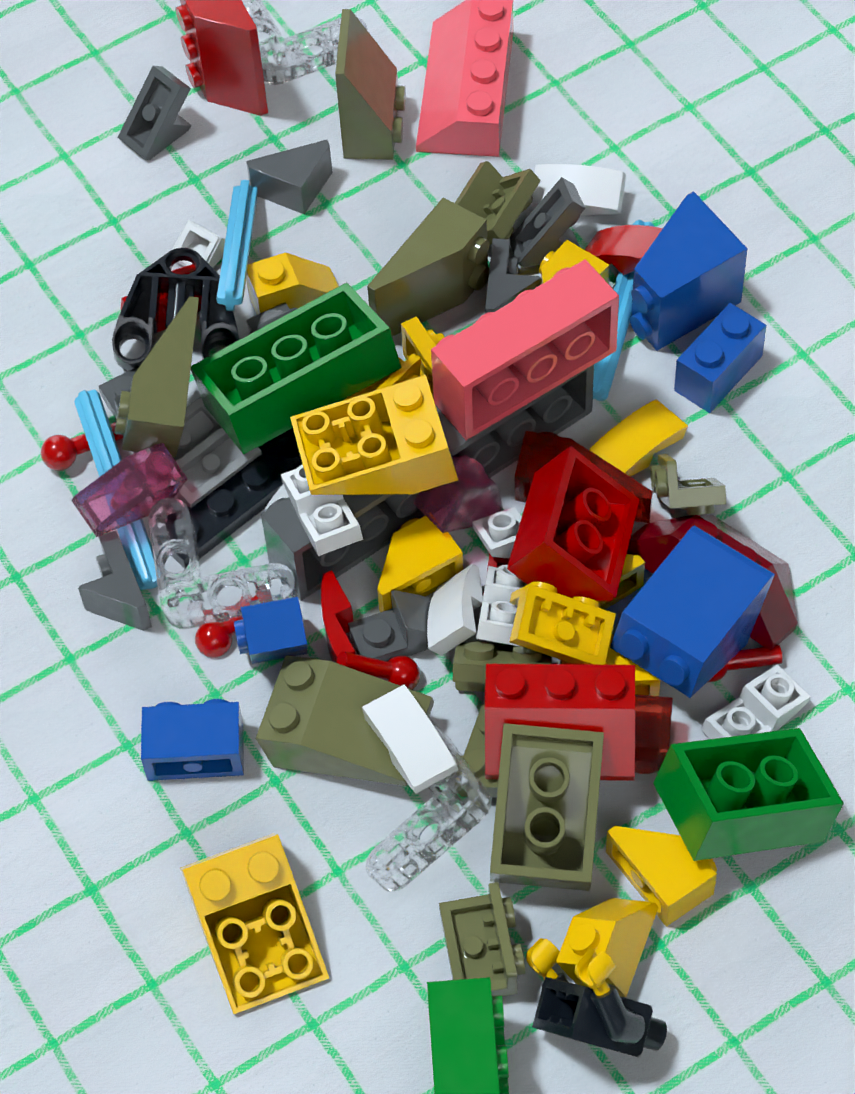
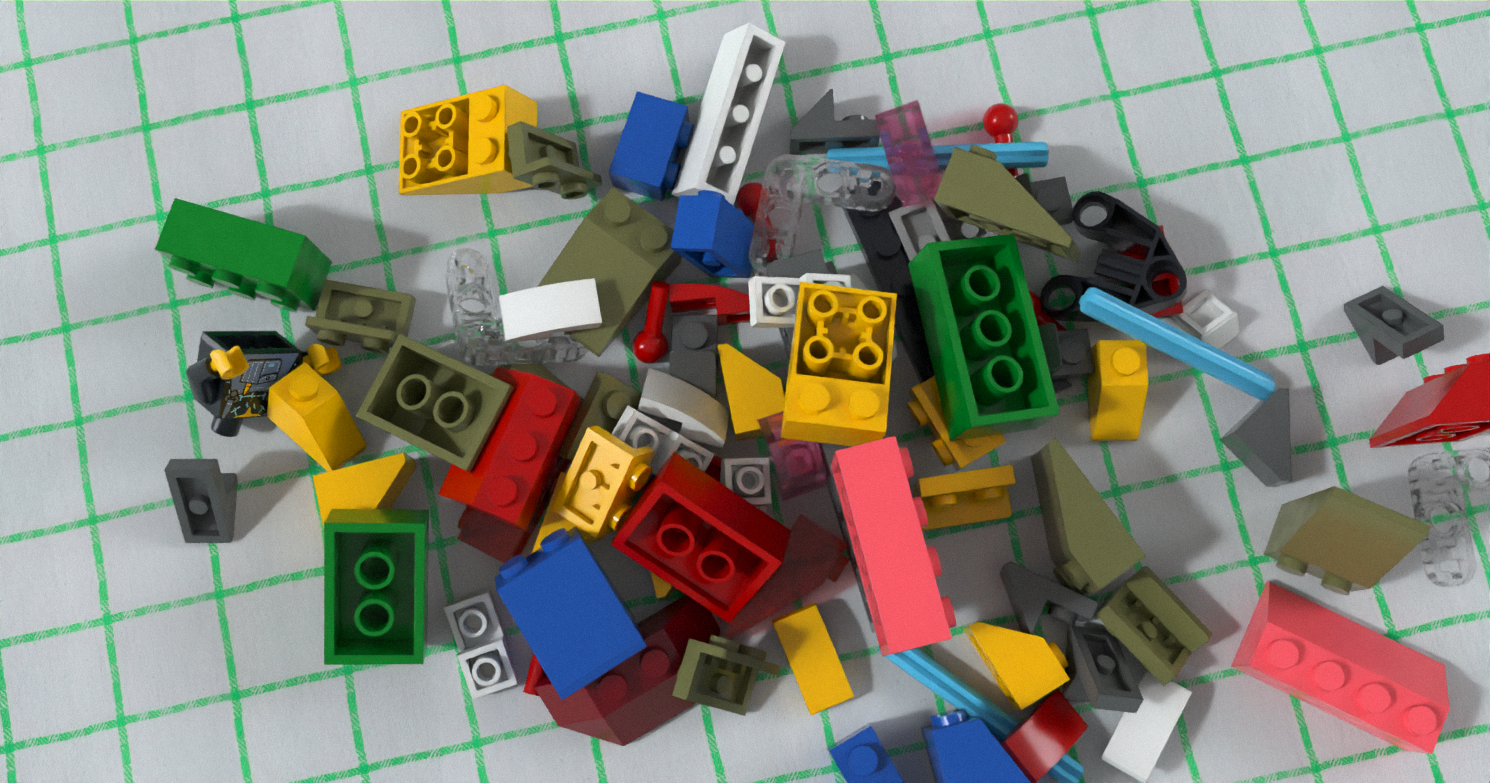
camera: 110 degrees right, 20 degrees up
(137, 671) = (730, 113): none -> white brick
(250, 820) = (548, 162): none -> olive bracket
(739, 1020) = (203, 499): none -> dark grey slope

